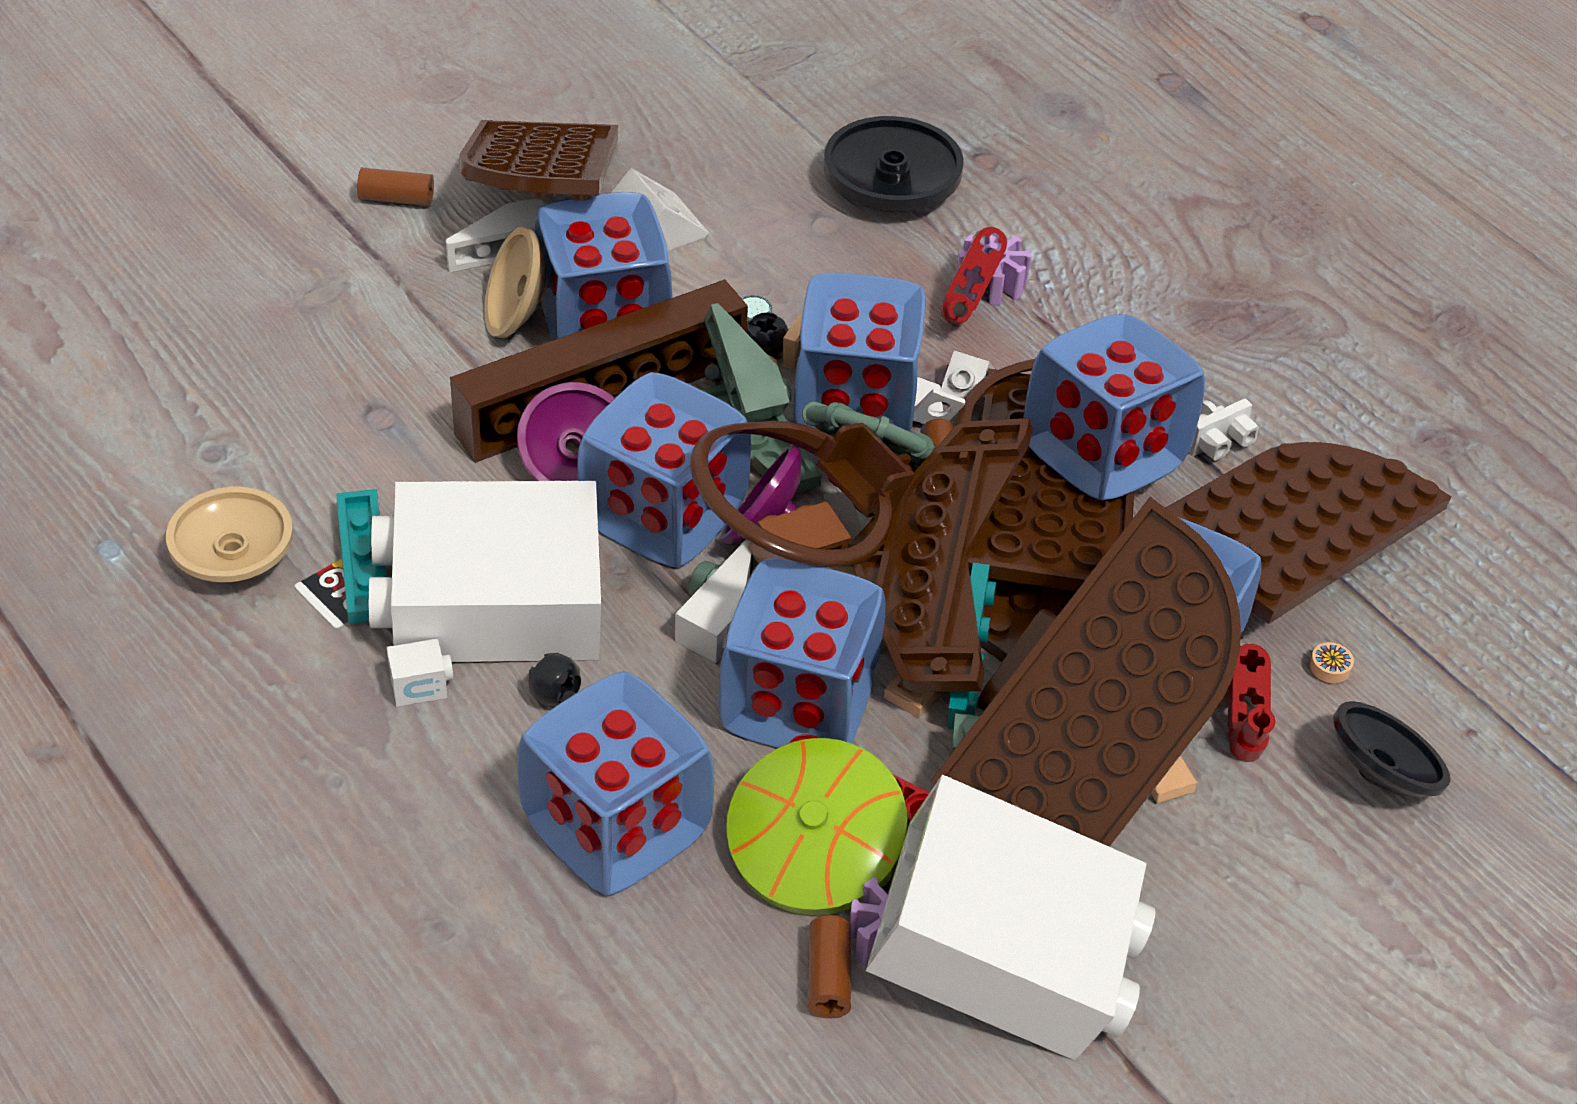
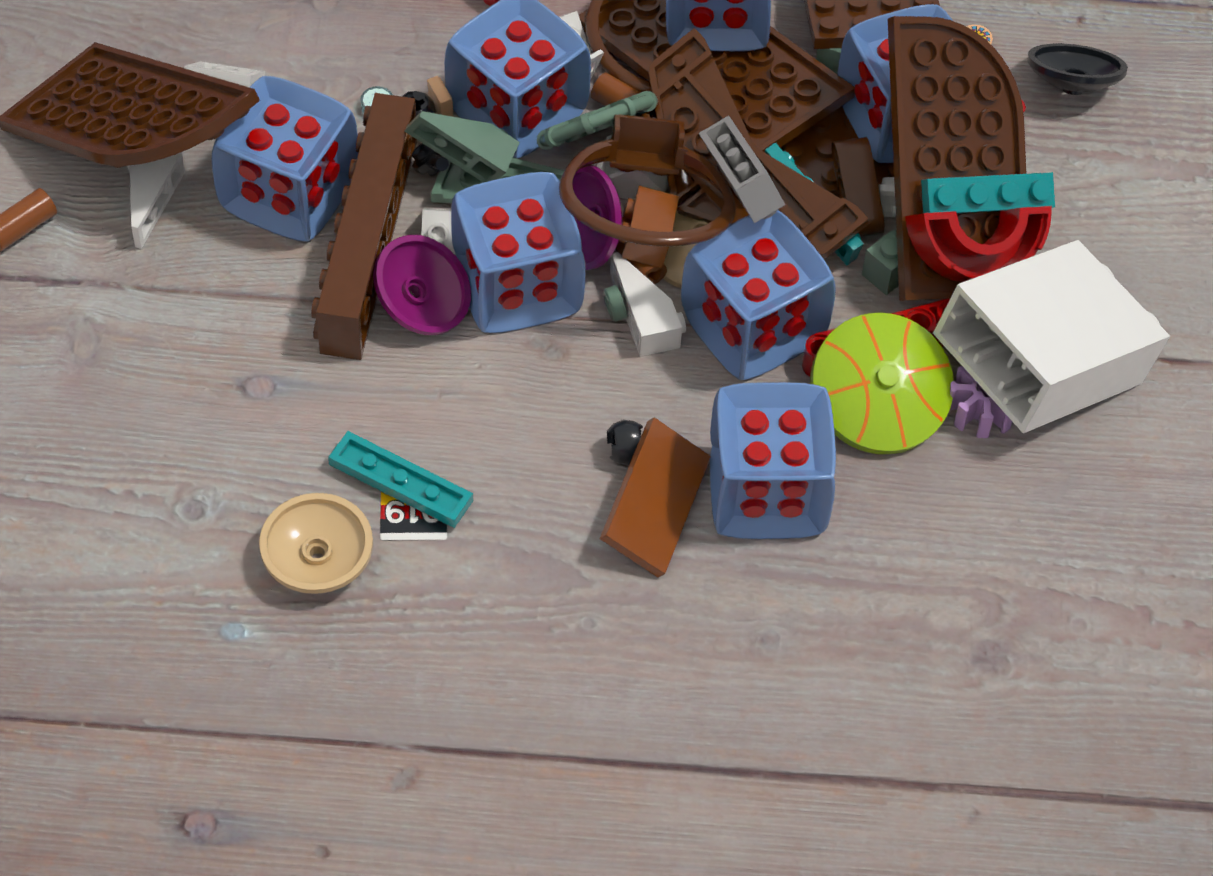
camera: 50 degrees left, 10 degrees up
(418, 672) = (546, 514): white brick -> none
(478, 739) = (655, 497): none -> dark orange tile
(490, 569) = (507, 410): white brick -> none
(515, 283) = (220, 222): tan dish -> none
(829, 967) = (984, 453): dark orange piece -> none
(892, 536) = (742, 169): none -> light grey brick
(1004, 775) = (959, 258): none -> red brick
(1106, 748) = (987, 193): none -> teal plate

